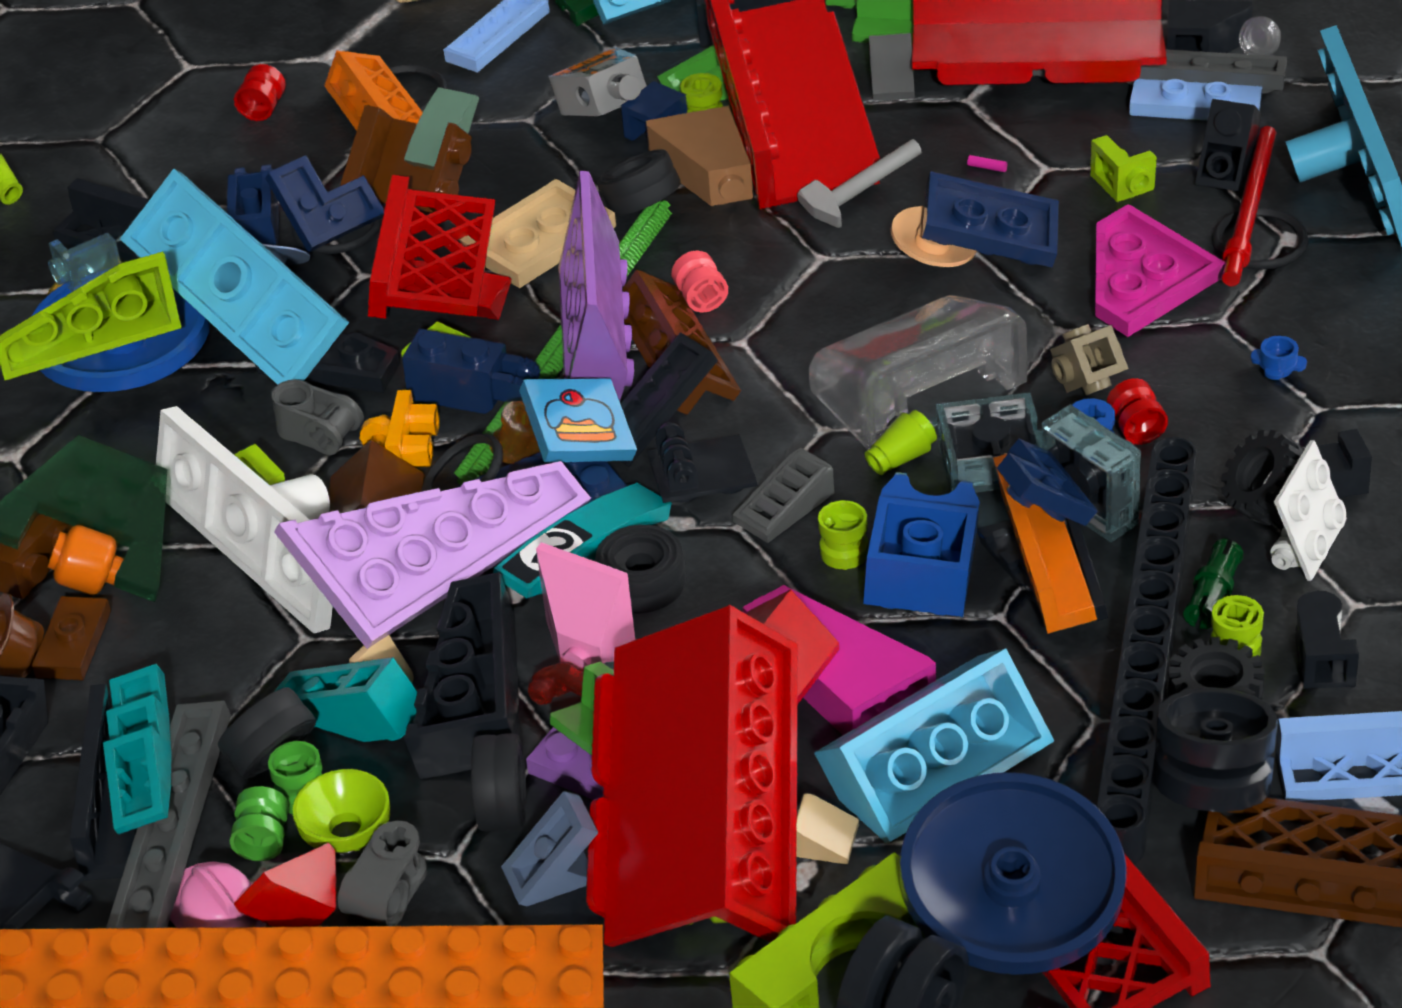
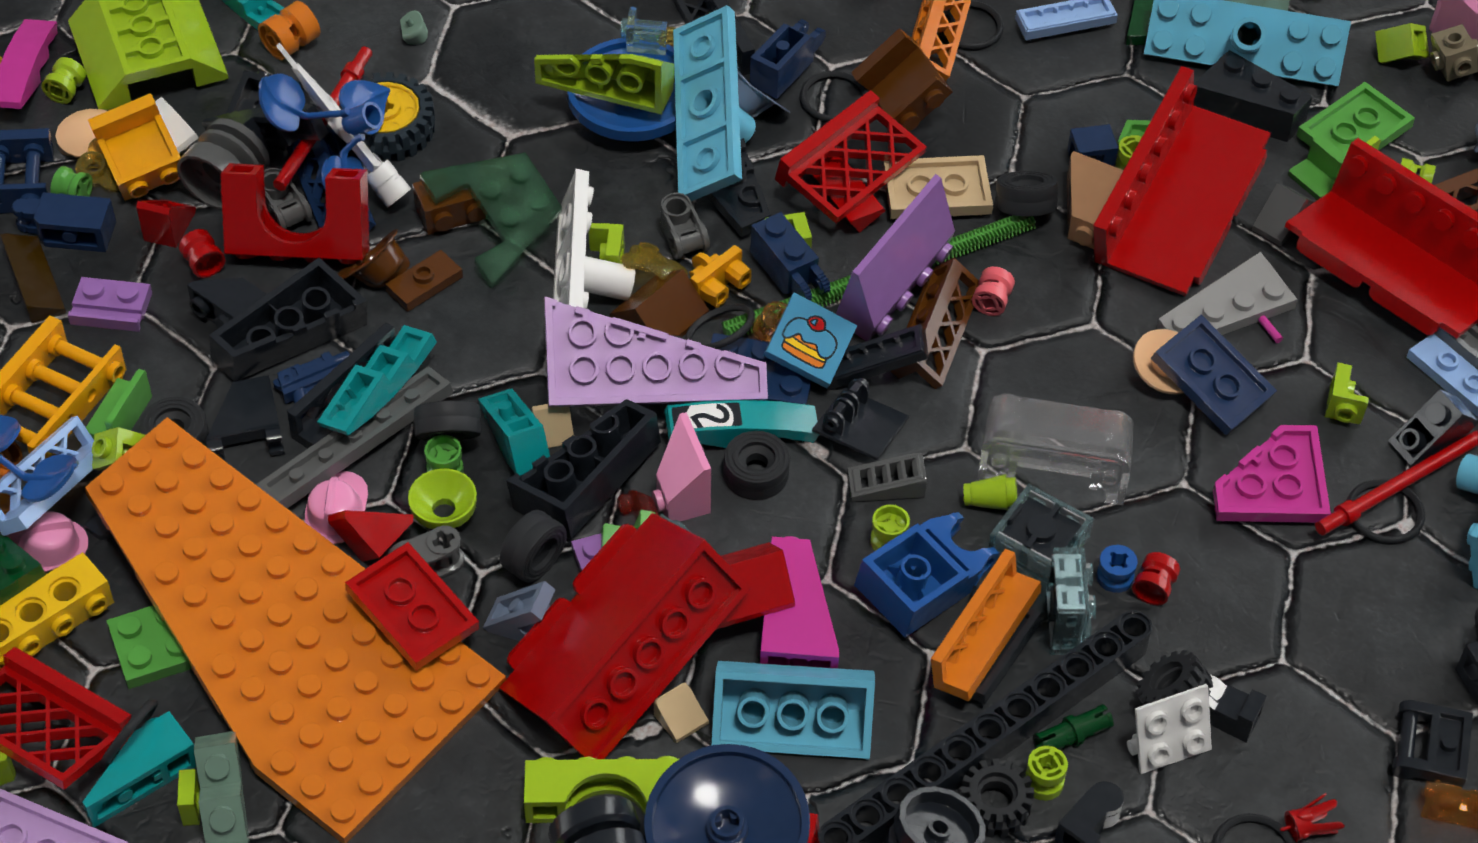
camera: 35 degrees right, 10 degrees up
(44, 808) = (300, 379): none -> dark blue piece
(84, 559) = (470, 234): orange head -> none
(259, 823) = (398, 473): bright green wheel -> none
(306, 462) = (648, 259): none -> clear yellow plate
(320, 214) = (814, 83): dark blue plate -> none
(428, 135) = (949, 66): sand green slope -> none
(438, 917) = (412, 606): none -> red plate
(607, 82) = (1080, 102): light grey torso -> none
(825, 204) = (1132, 287): light grey piece -> none
(945, 149) = (1235, 299): none -> light grey wing
(1041, 480) = (1014, 593): dark blue plate -> none
(1088, 359) = (1161, 534): dark tan brick -> none
(1278, 357) = (1295, 599): blue plate -> none

